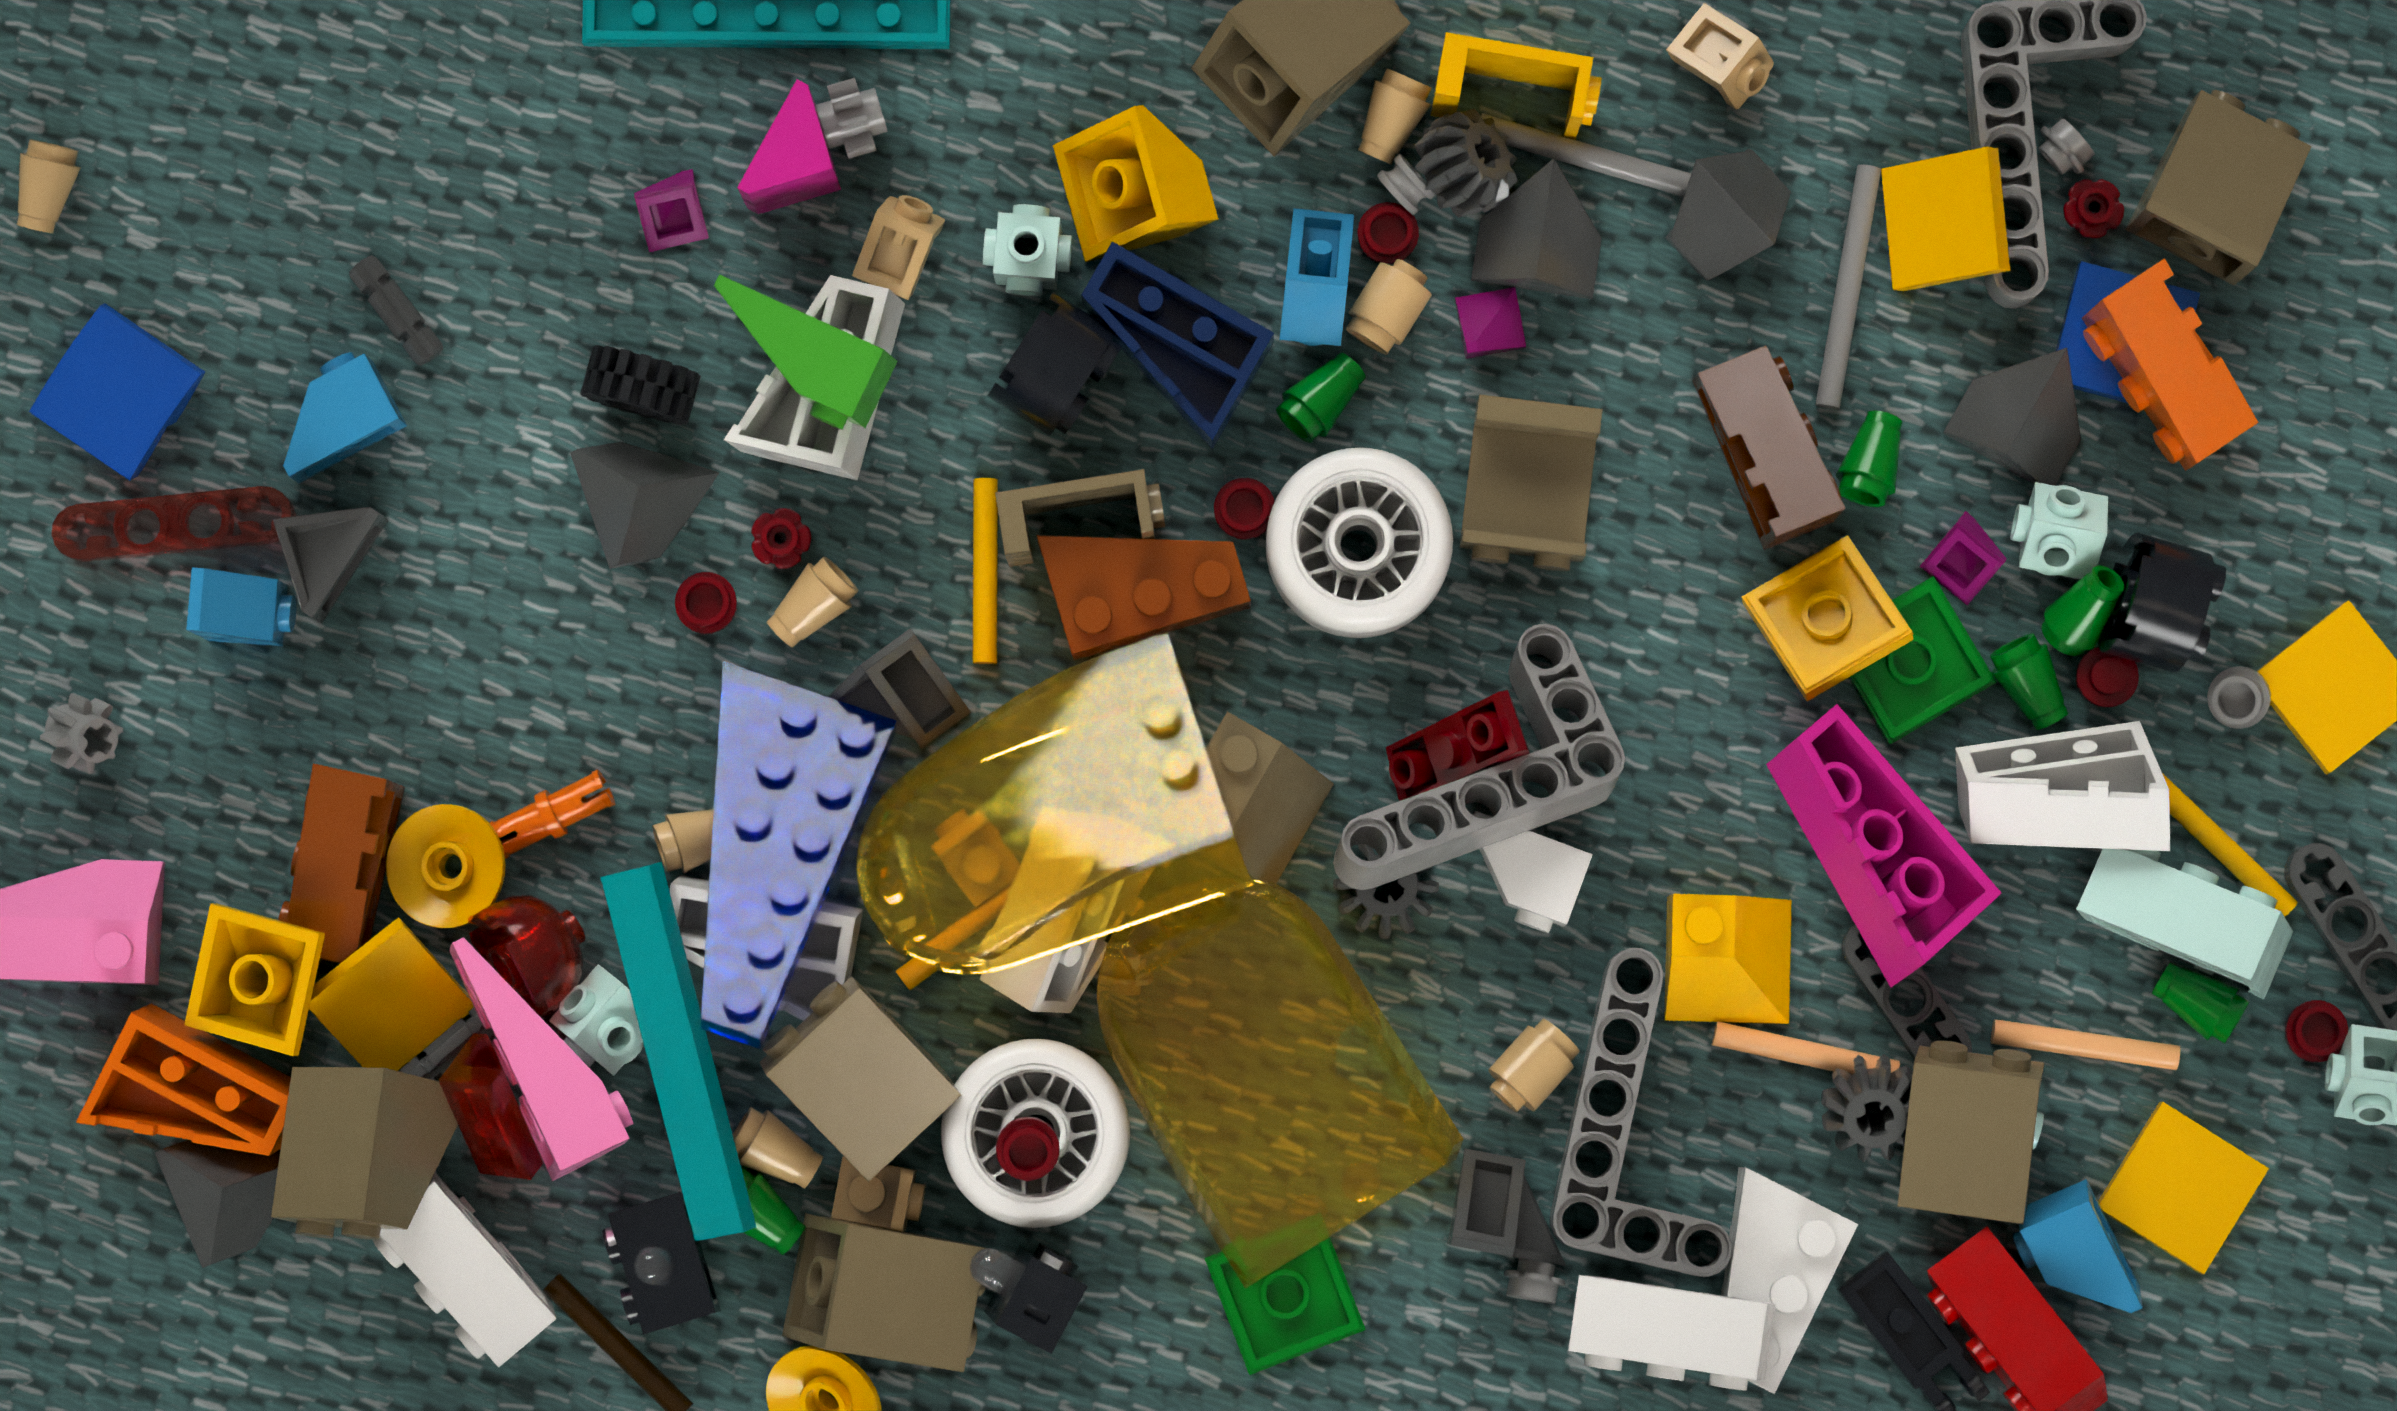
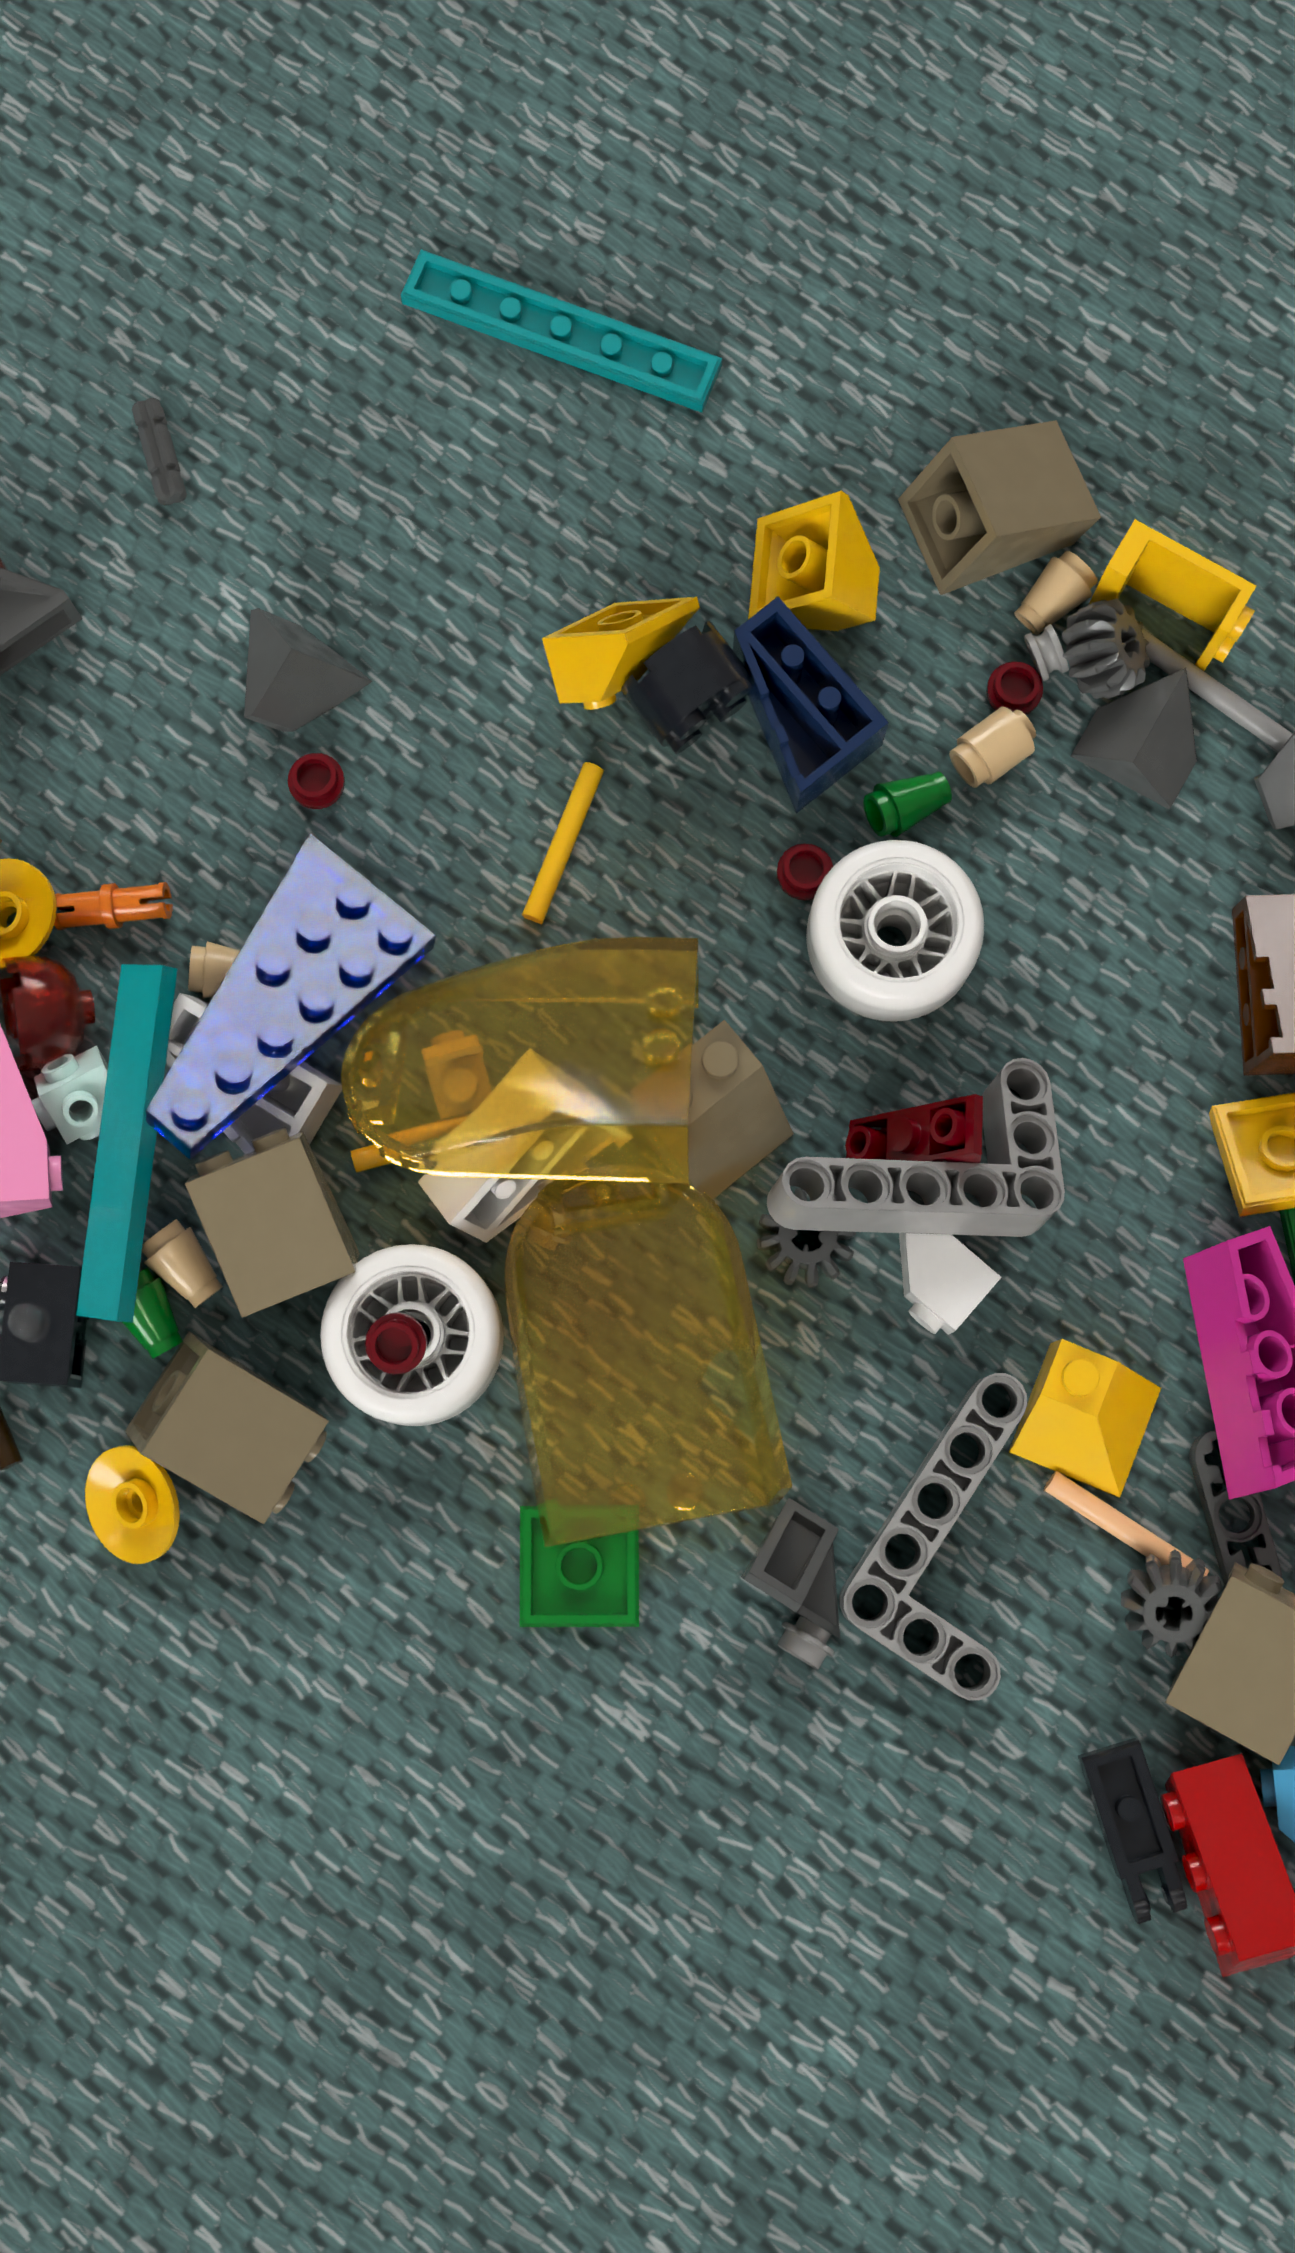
camera: 20 degrees right, 5 degrees down
(341, 416) = (73, 516): dark azure slope -> none
(640, 384) = (332, 574): black tyre -> none
(671, 212) = (418, 456): magenta slope -> none
(779, 418) = (490, 632): white wedge -> none
(792, 158) = (530, 436): dark pink slope -> none
(797, 538) = (406, 763): dark red plate -> none
(812, 601) = (405, 812): tan cone -> none
(818, 360) = (493, 601): bright green slope -> none
(851, 118) = (597, 429): light grey gear -> none
(883, 1201) = (257, 1341): tan bracket -> none
(898, 244) = (595, 547): tan bracket -> none
(906, 687) = (454, 907): dark grey slope -> none
(960, 350) = (607, 647): none -> yellow slope
(1017, 503) = (658, 797): dark tan panel -> none
(1031, 1292) = (352, 1475): black piece -> none
(1033, 272) = (711, 577): light aqua brick -> none
(1139, 588) = (687, 894): dark orange wedge -> none
(1317, 277) = (939, 702): dark azure slope -> none
(1490, 322) = (1074, 796): magenta slope -> none
(1529, 481) = (1062, 937): dark tan panel -> none
(1532, 1066) = (877, 1447): tan brick -> none
(1671, 1331) = (918, 1739): white wedge -> none
(1783, 1257) = (1029, 1725): white wedge -> none

